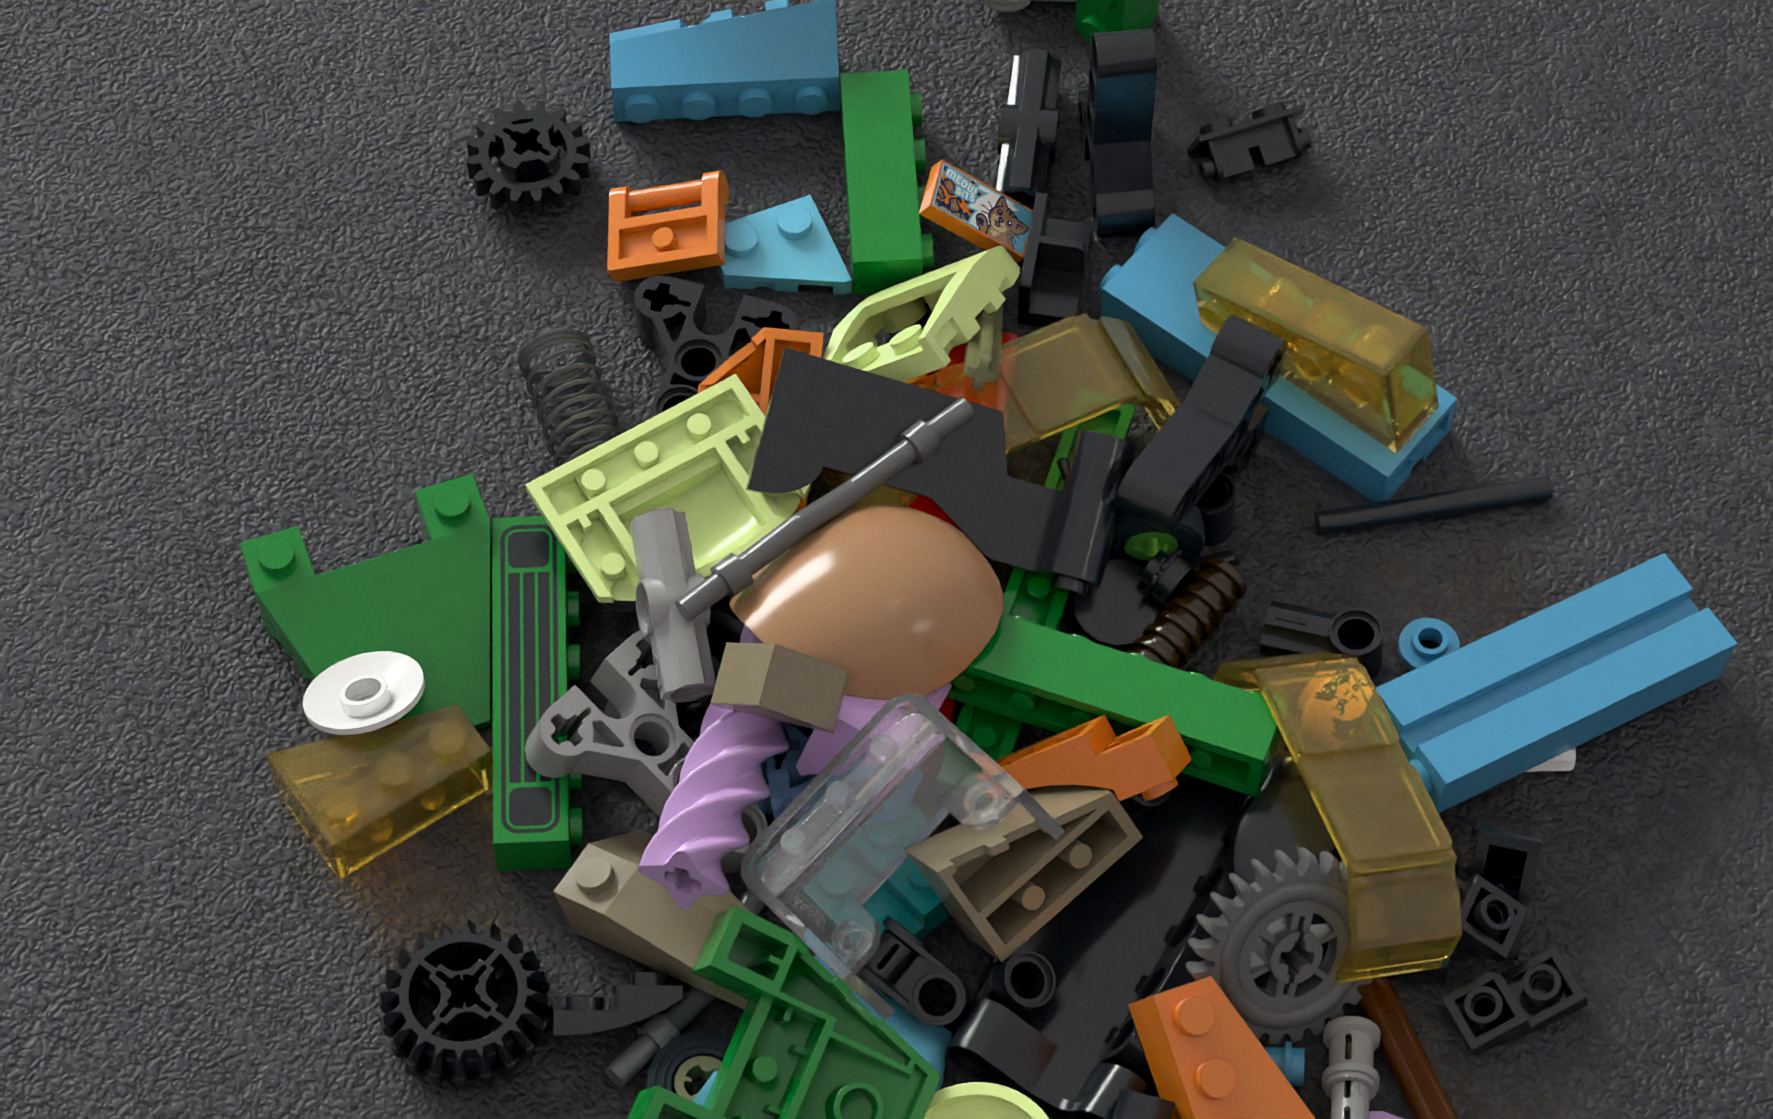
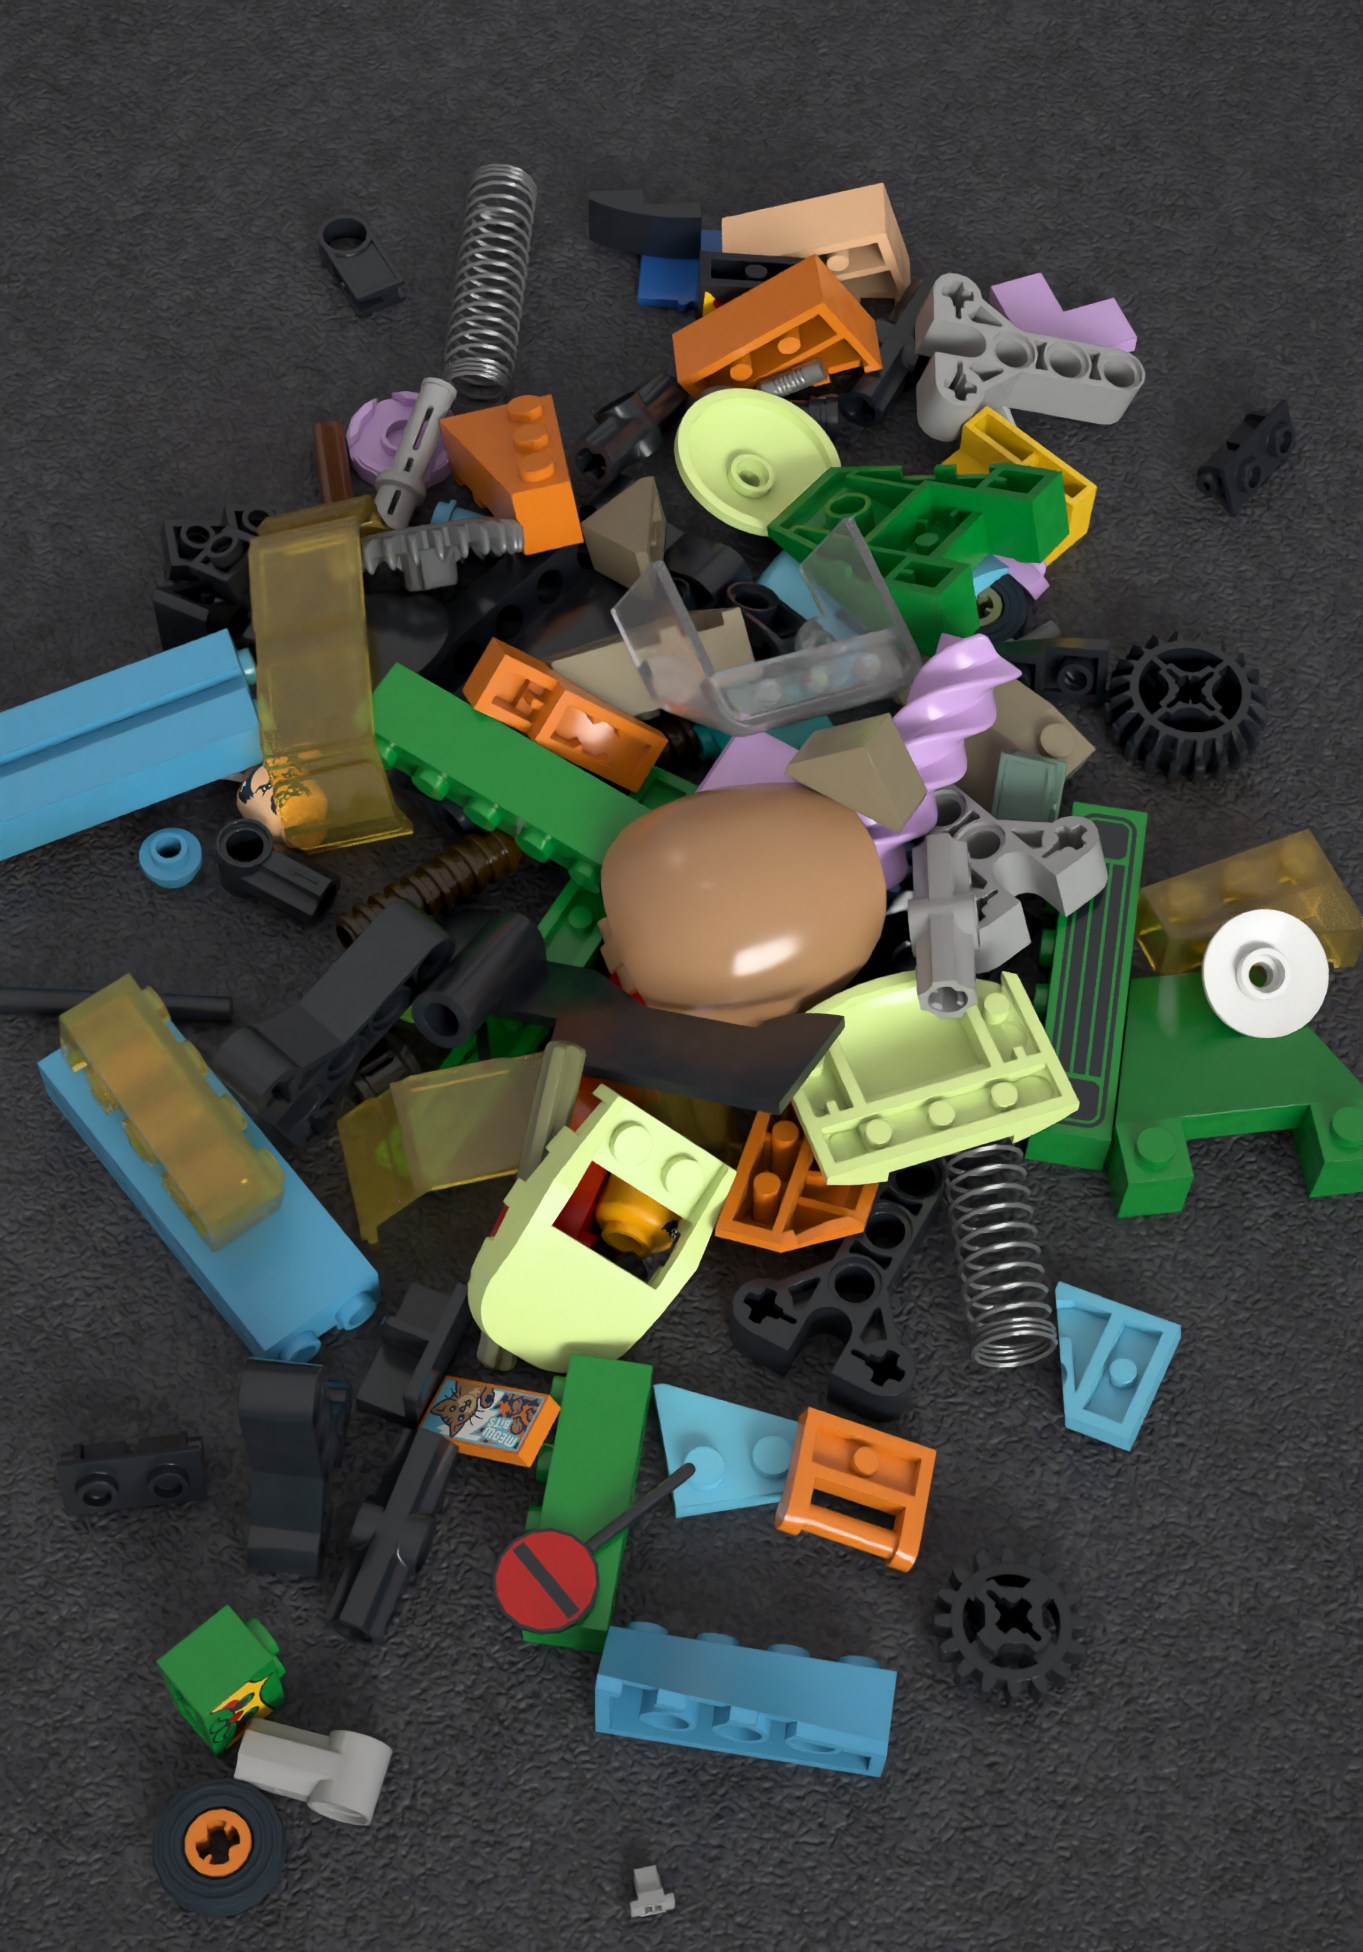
camera: 170 degrees left, 0 degrees up
(472, 369) = (1110, 1363): none -> medium azure wing
(614, 820) = (1028, 787): none -> sand green piece
(735, 572) = (652, 1022): dark grey bar -> none
(888, 93) = (551, 1577): none -> piece
(1078, 1025) = (627, 533): none -> dark tan slope

